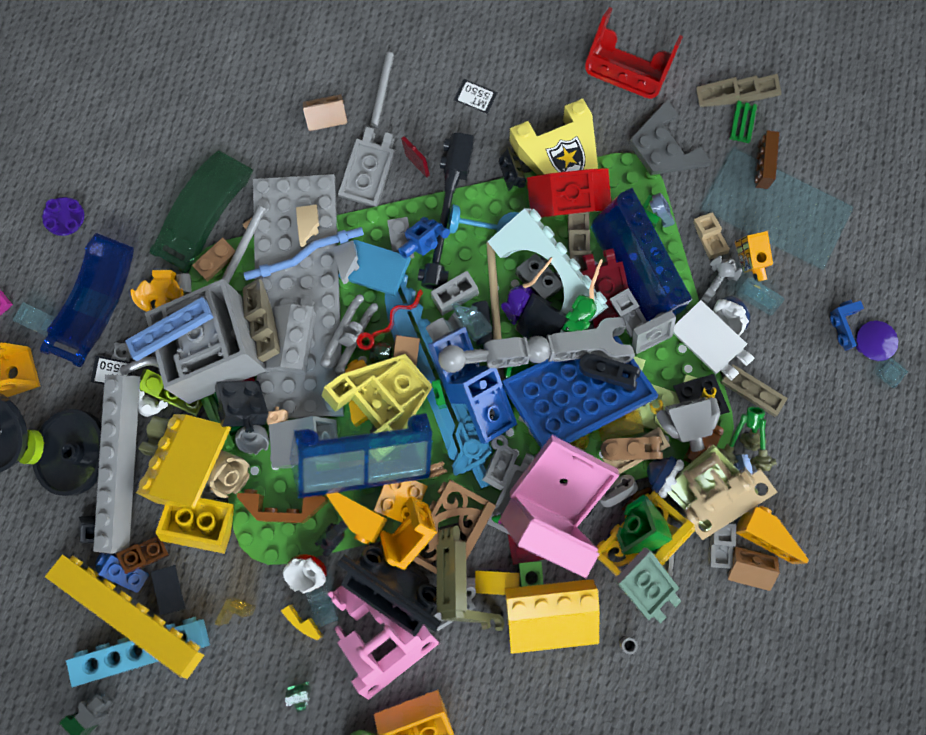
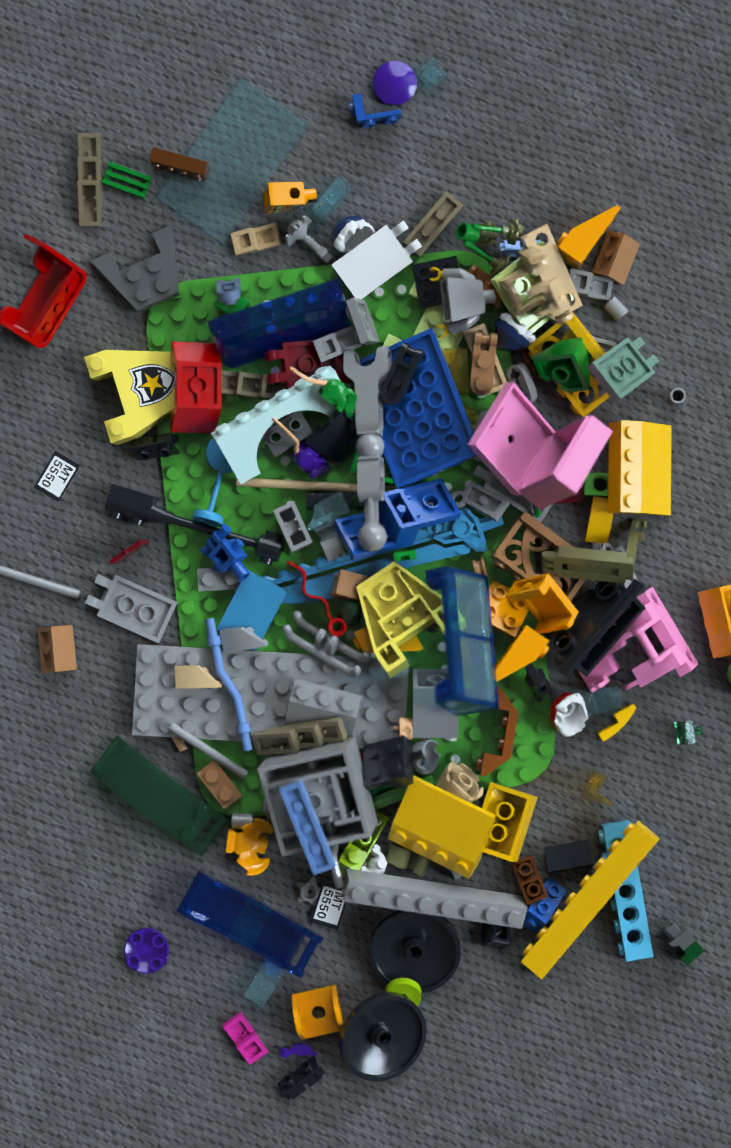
camera: 85 degrees left, 10 degrees up
(703, 574) = (616, 309): none -> light grey hinge

